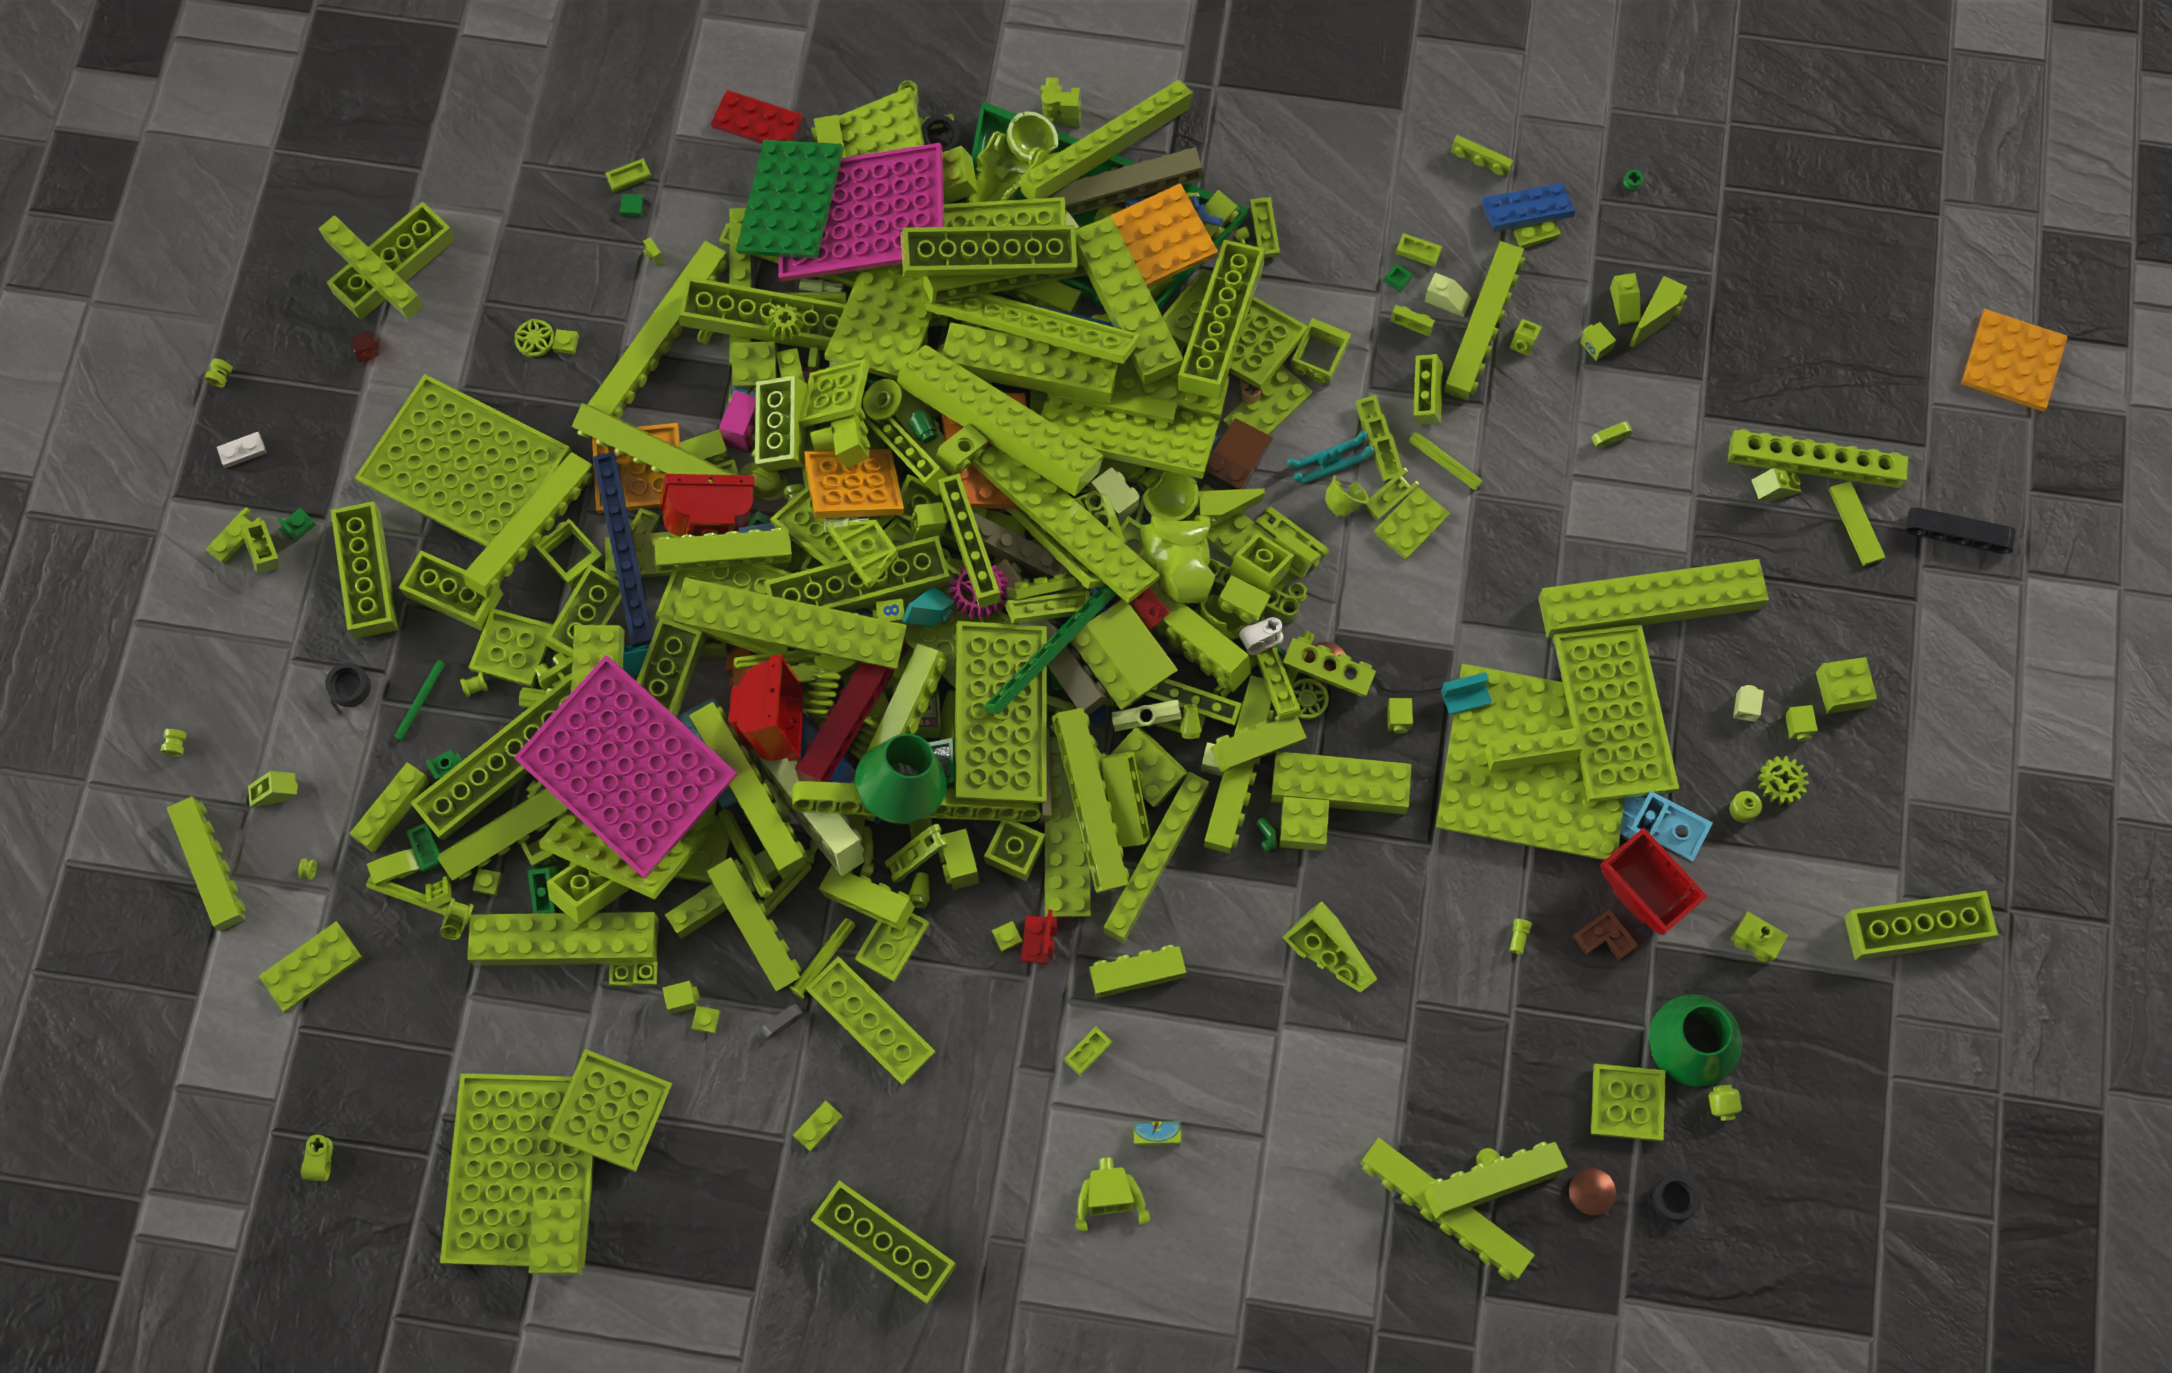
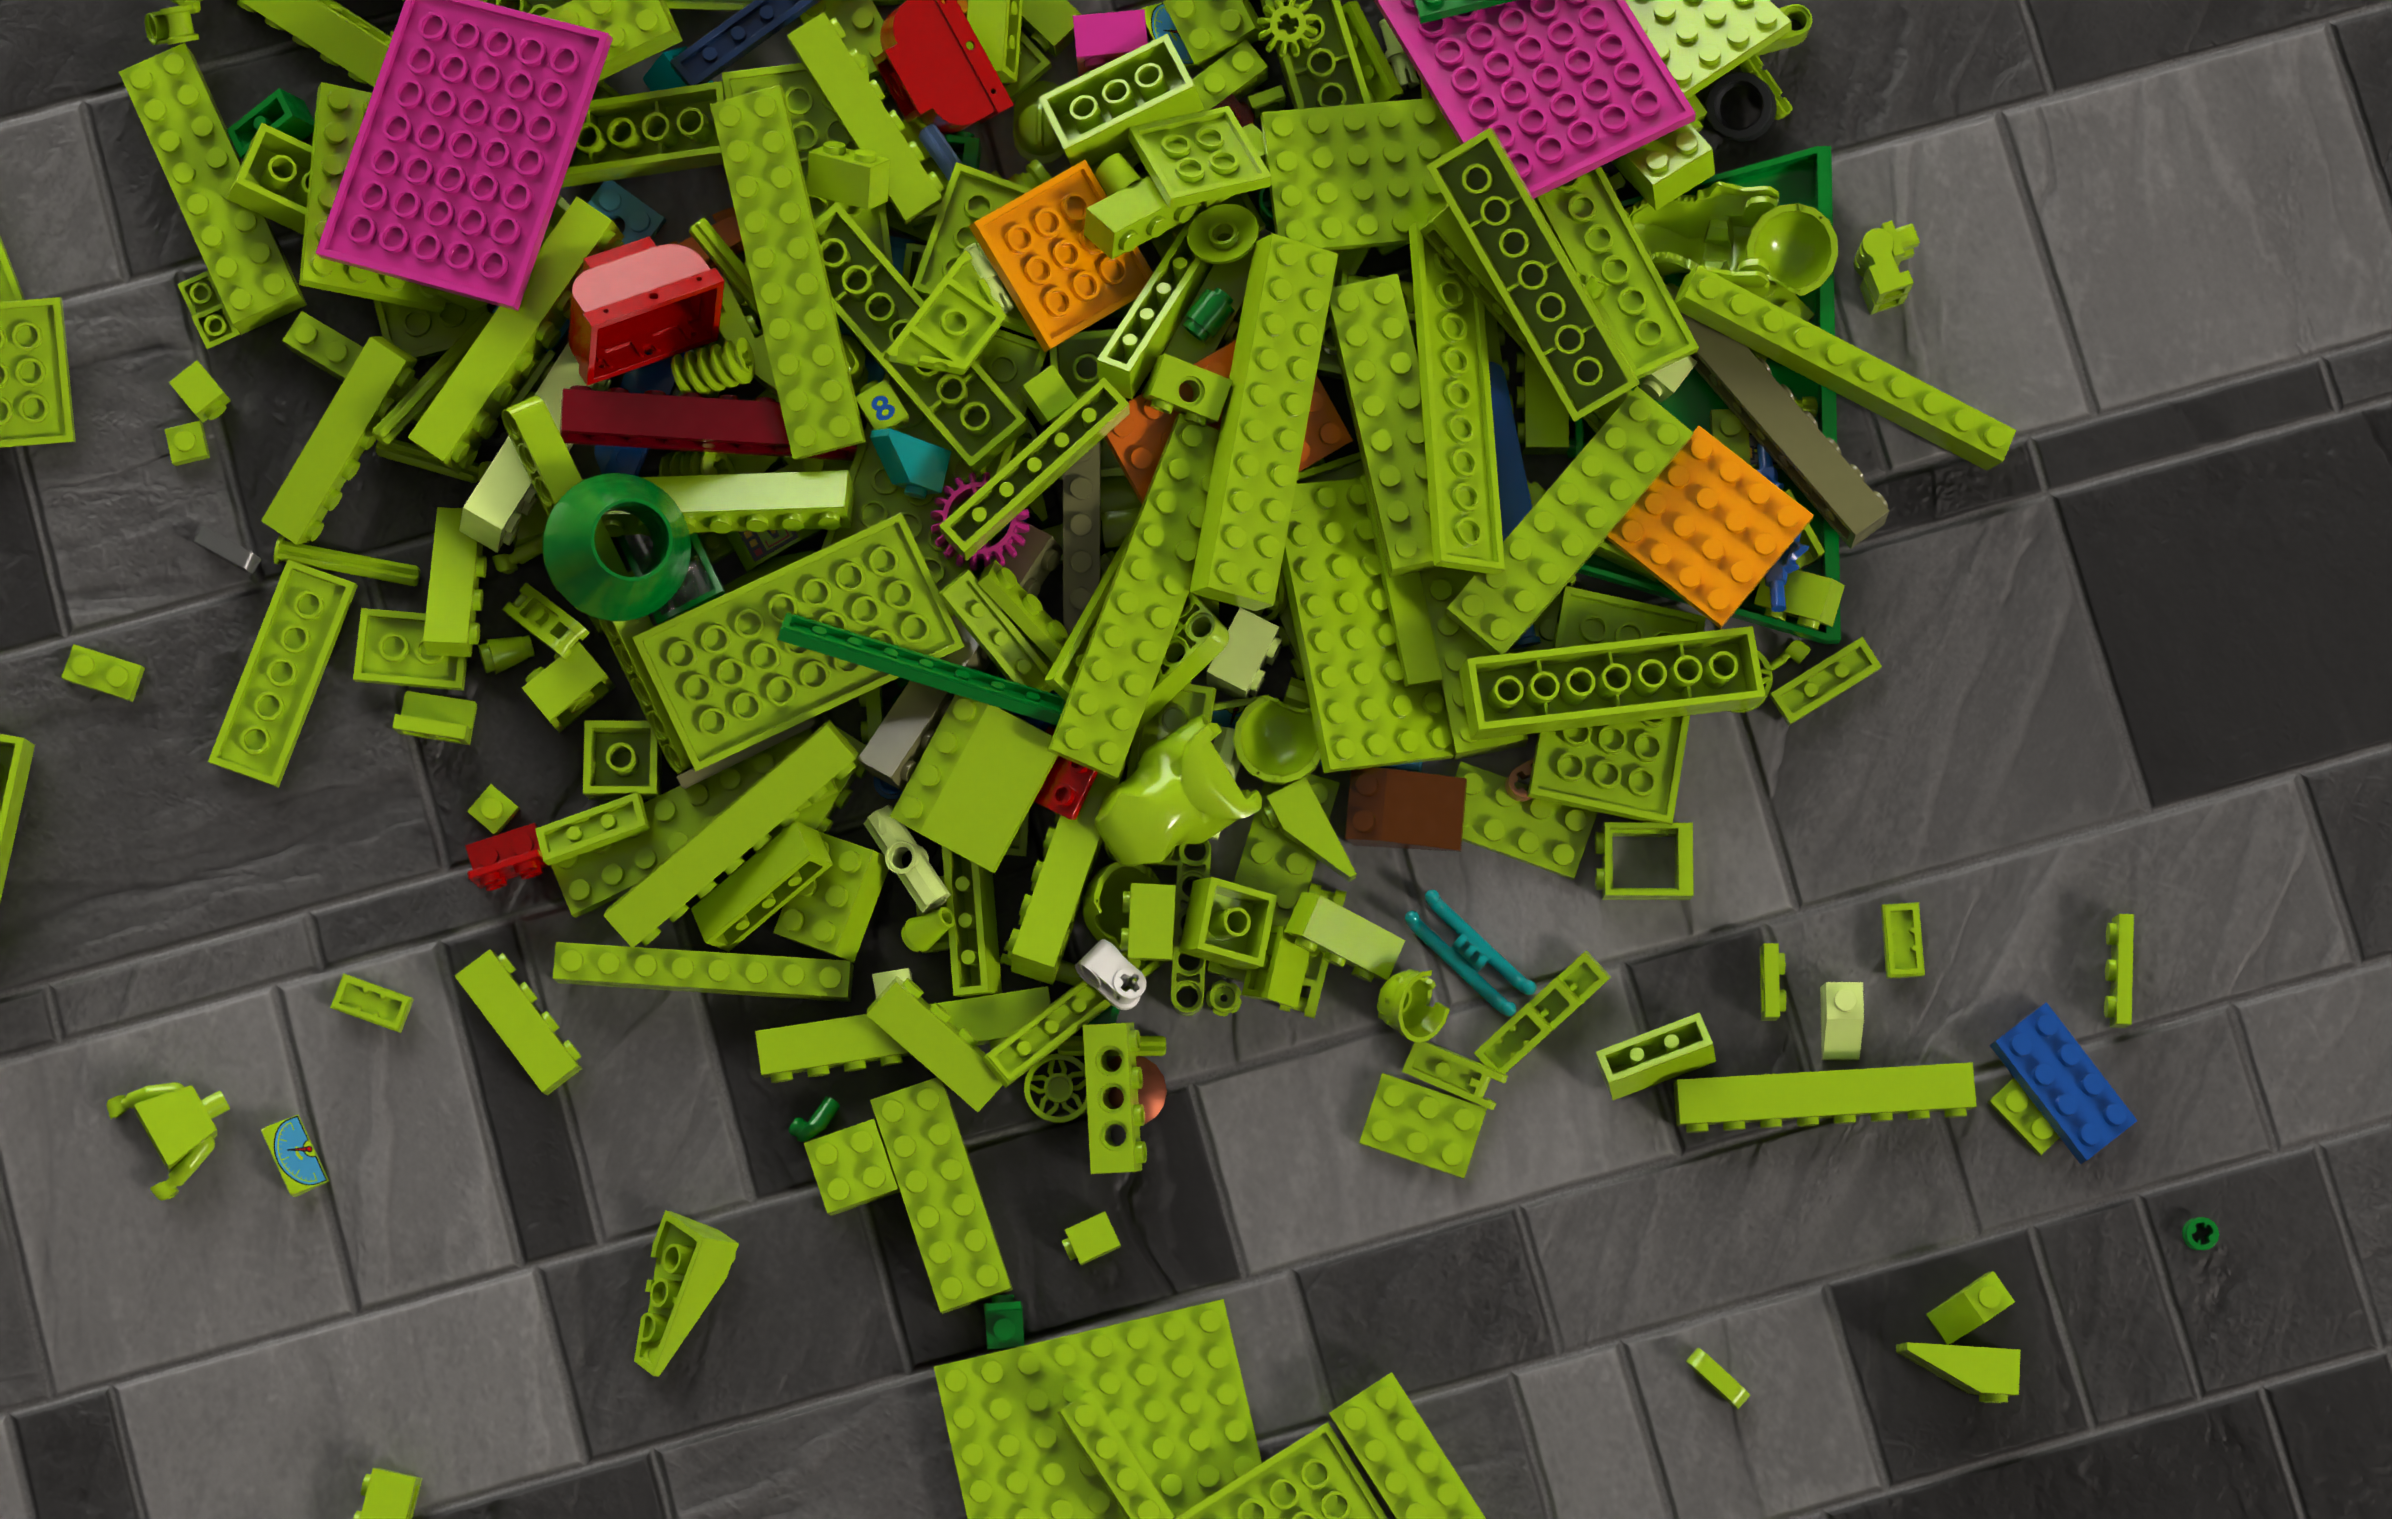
camera: 65 degrees right, 10 degrees up
(487, 882) = (253, 41): lime plate -> none
(537, 856) = (319, 73): lime panel -> none
(751, 569) = (848, 175): none -> lime brick
(938, 945) = (436, 718): none -> lime panel
(1048, 878) = (592, 828): none -> lime plate
(1294, 511) = (1344, 937): none -> lime brick
(1398, 277) = (1840, 928): green tile -> none
(1426, 782) = (1004, 1323): none -> green bracket
(1445, 460) = (1552, 1134): lime axle -> none
(1466, 693) = (1166, 1327): teal panel -> none
(1525, 337) = (1828, 1172): lime bracket -> none
(1597, 340) = (1874, 1289): lime brick -> none

